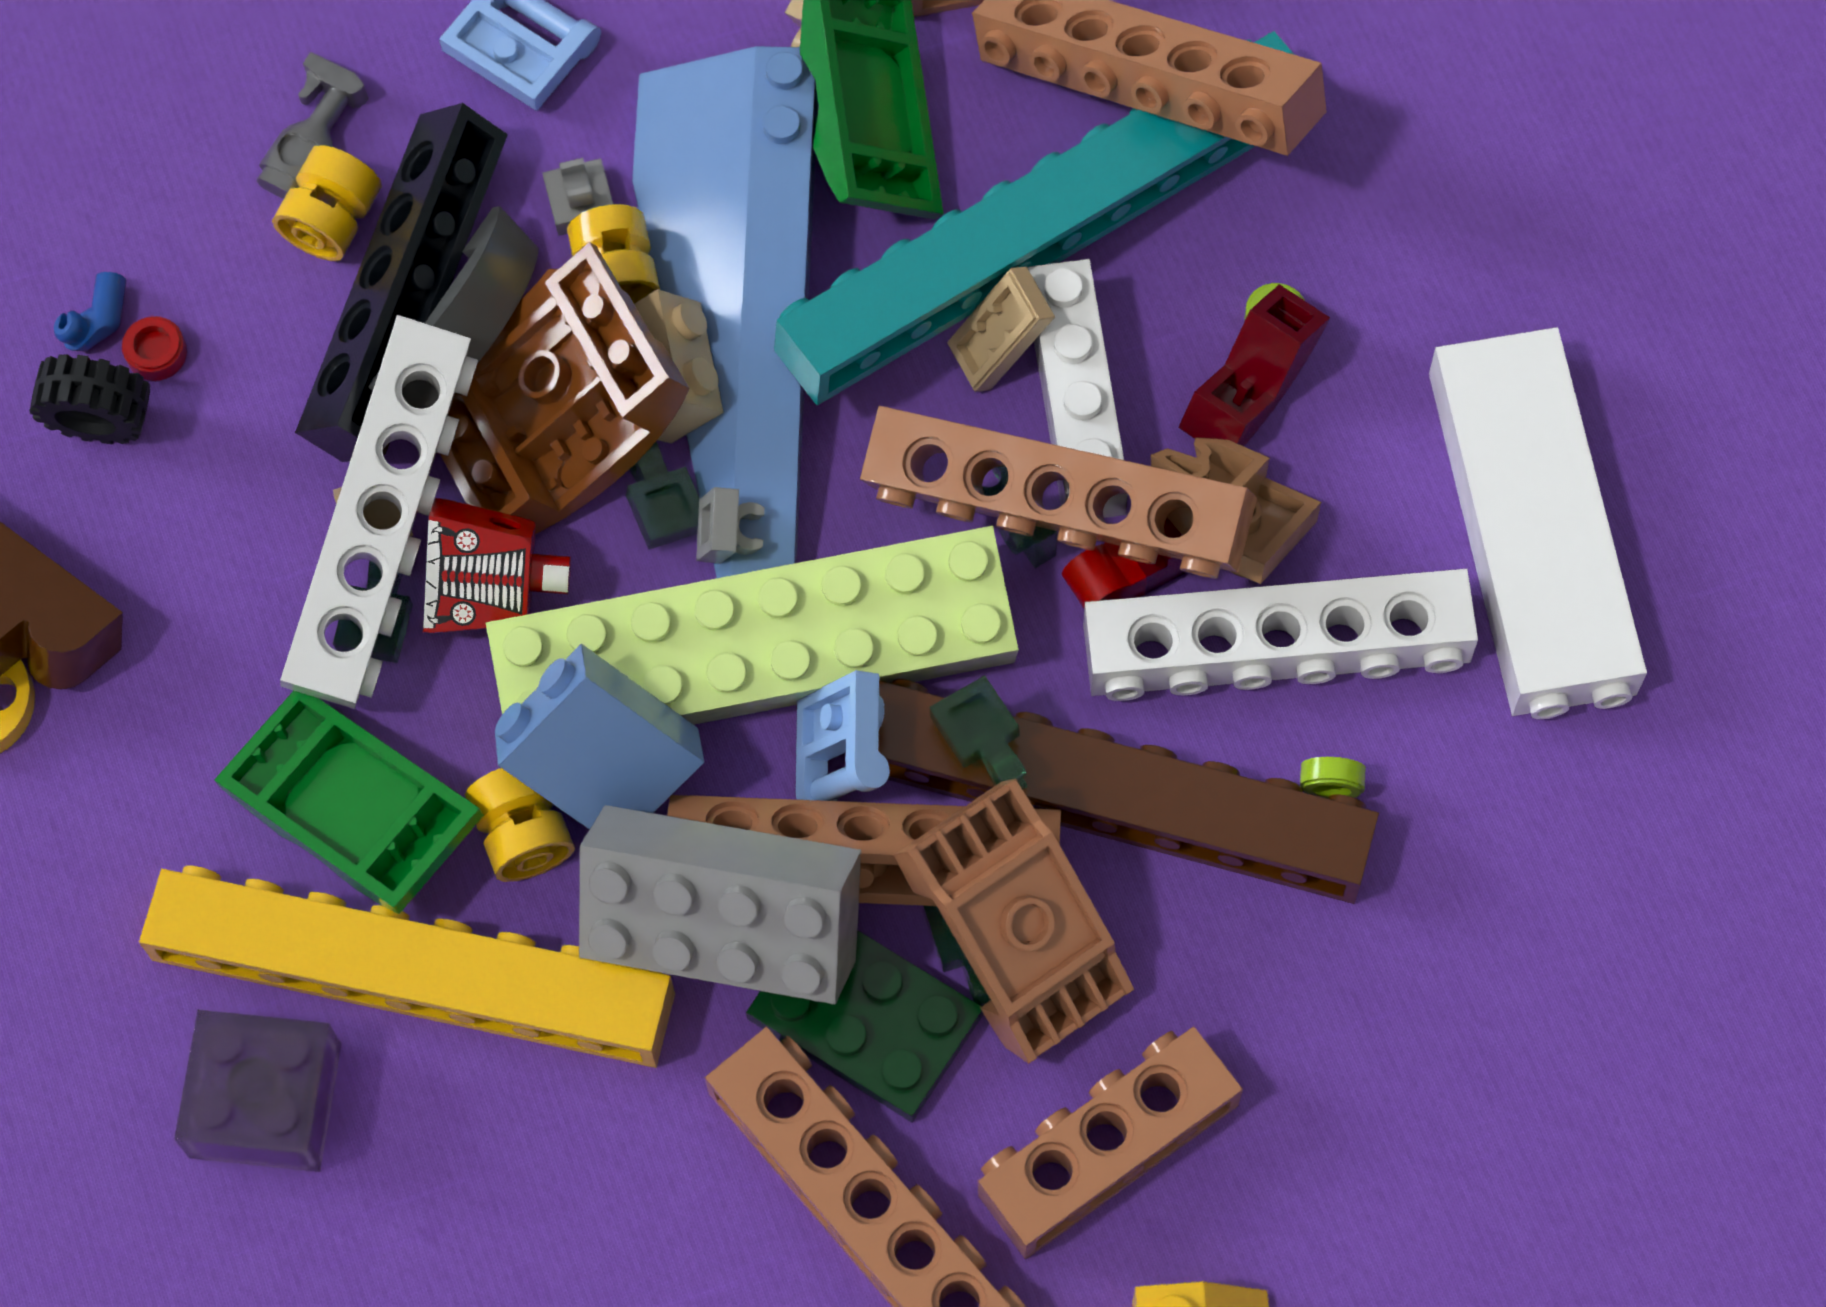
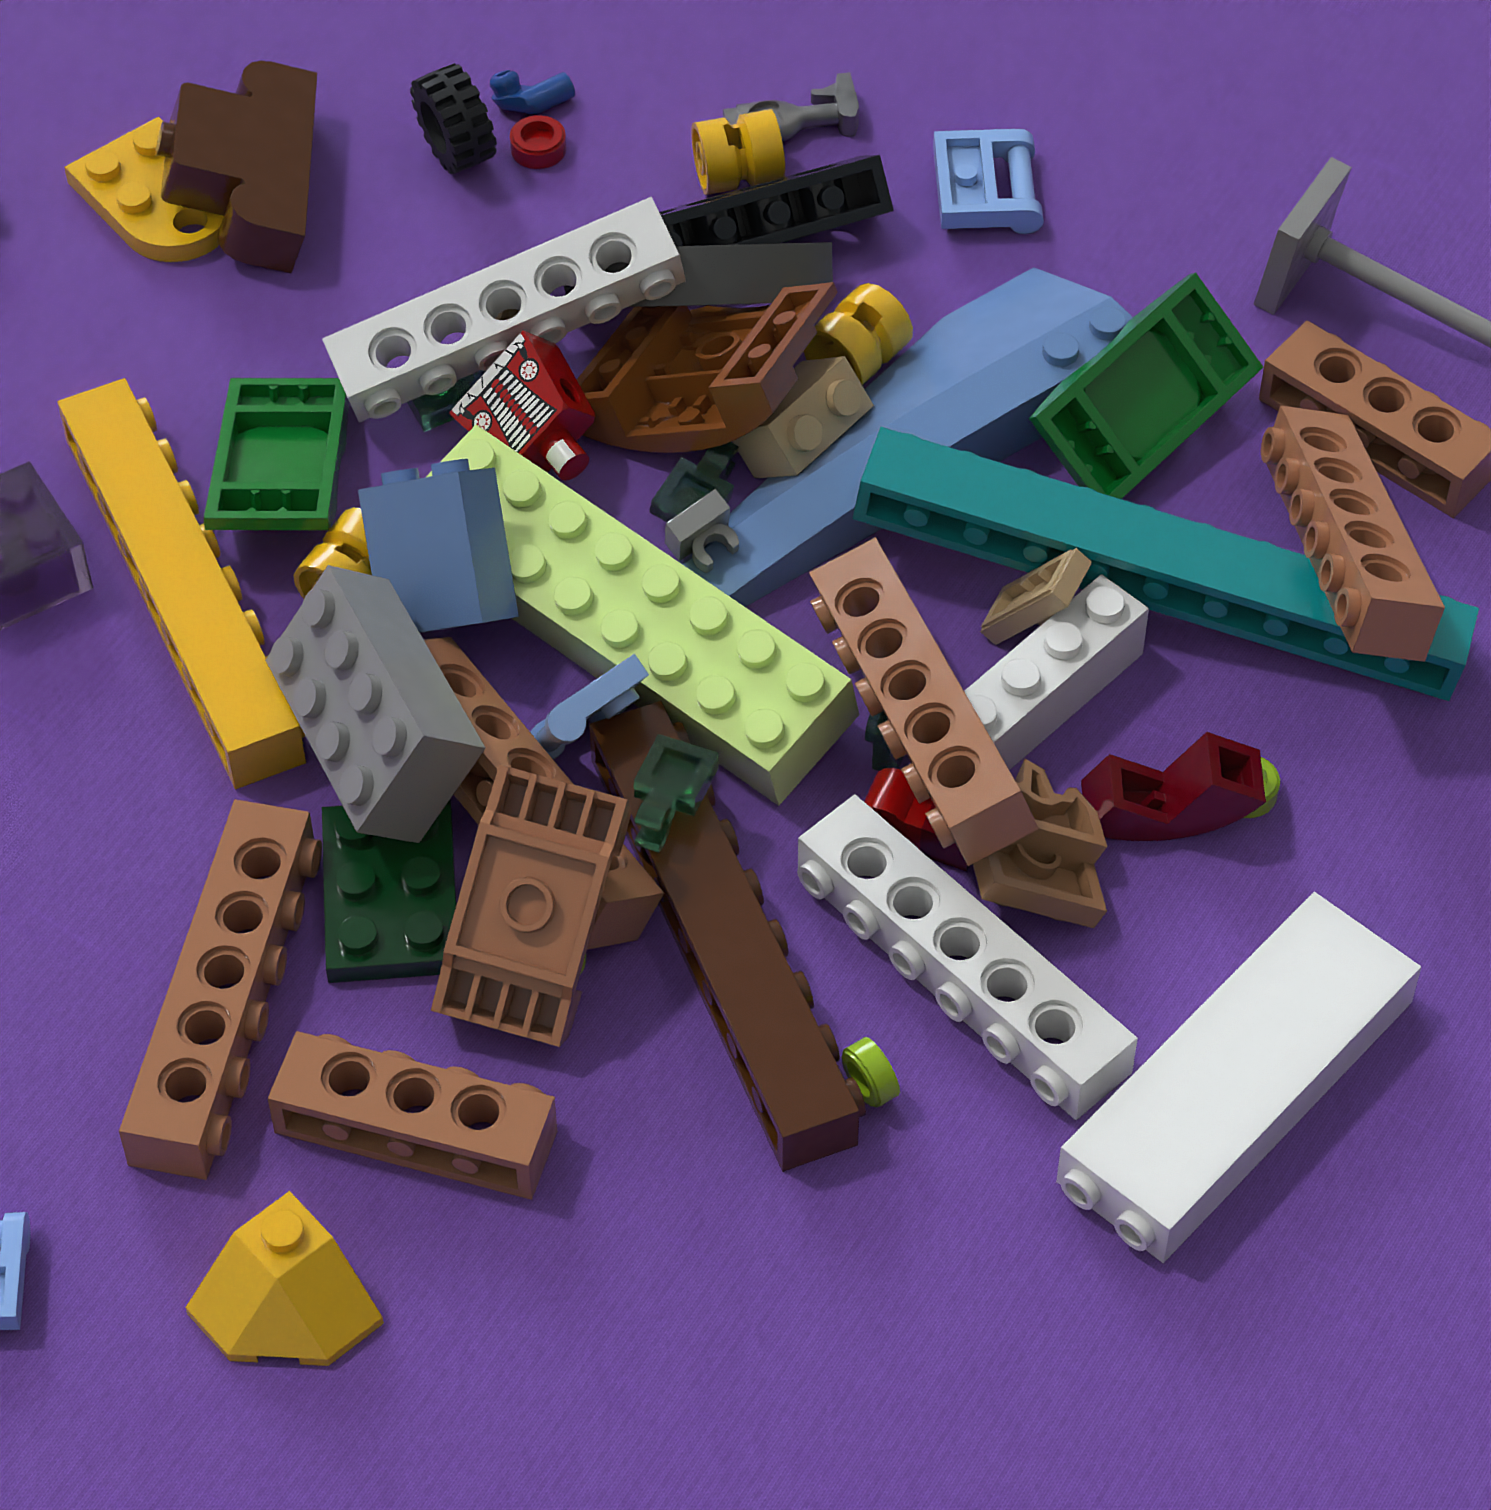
camera: 50 degrees right, 15 degrees down
(575, 189) = (907, 285): light grey tile -> none

